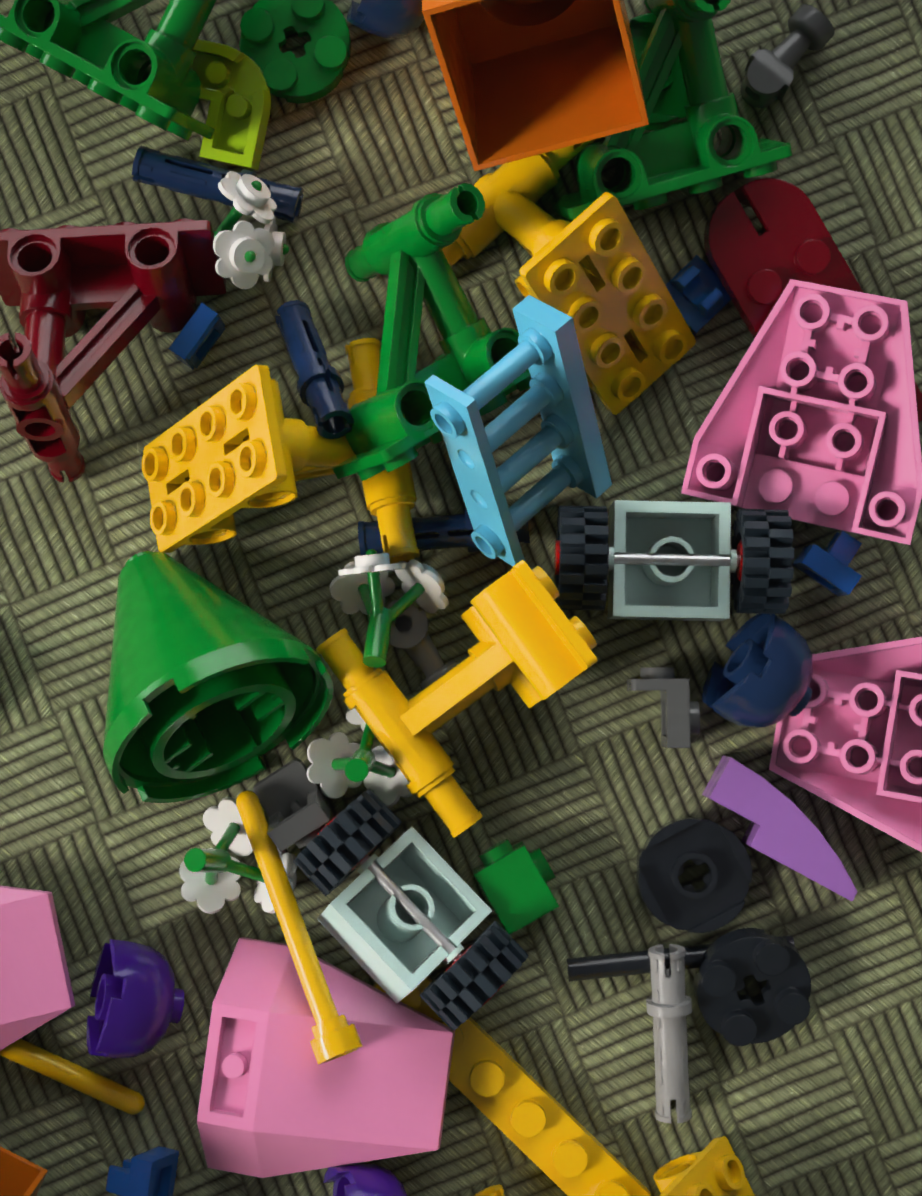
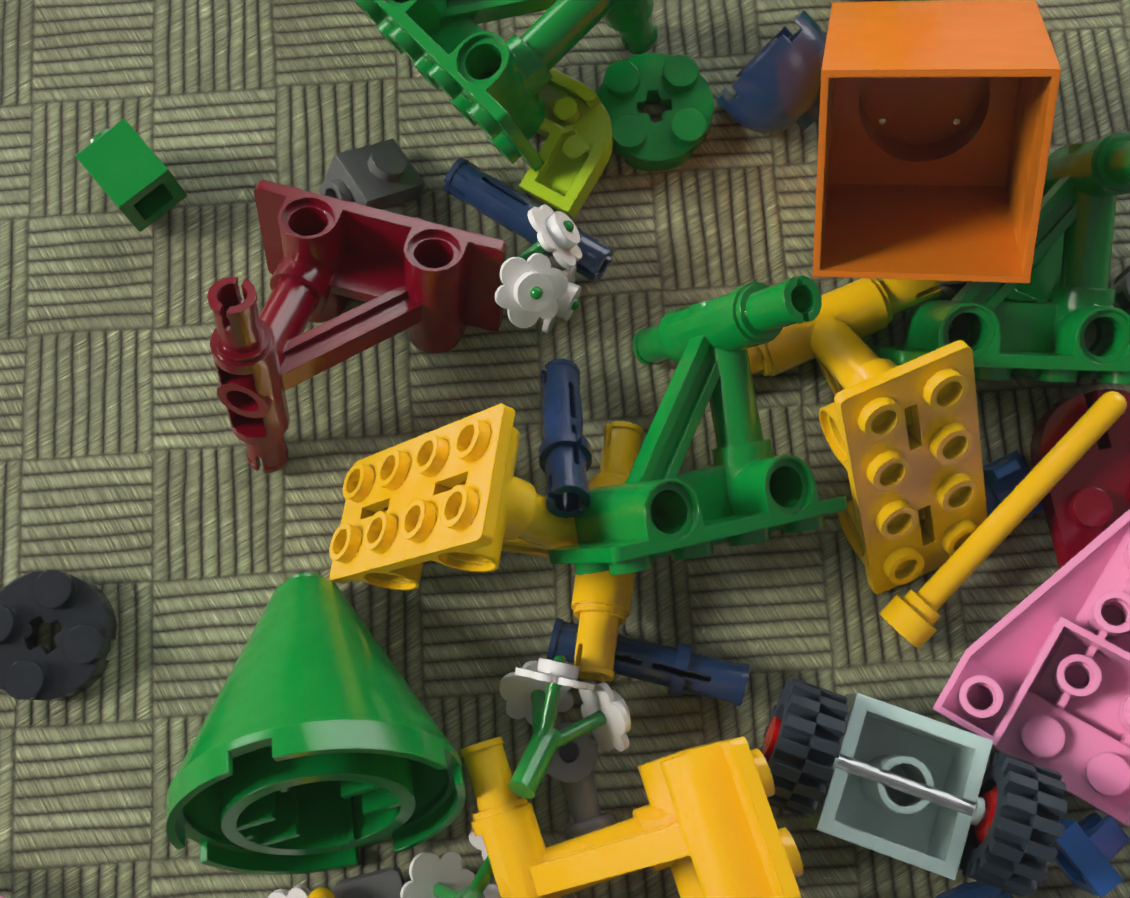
camera: 20 degrees right, 10 degrees down
(66, 192) = (373, 176): none -> dark grey bracket
(198, 336) = (452, 364): blue tile -> none
(568, 432) = (832, 584): medium azure fence -> none
(650, 419) = (917, 612): none -> yellow piece

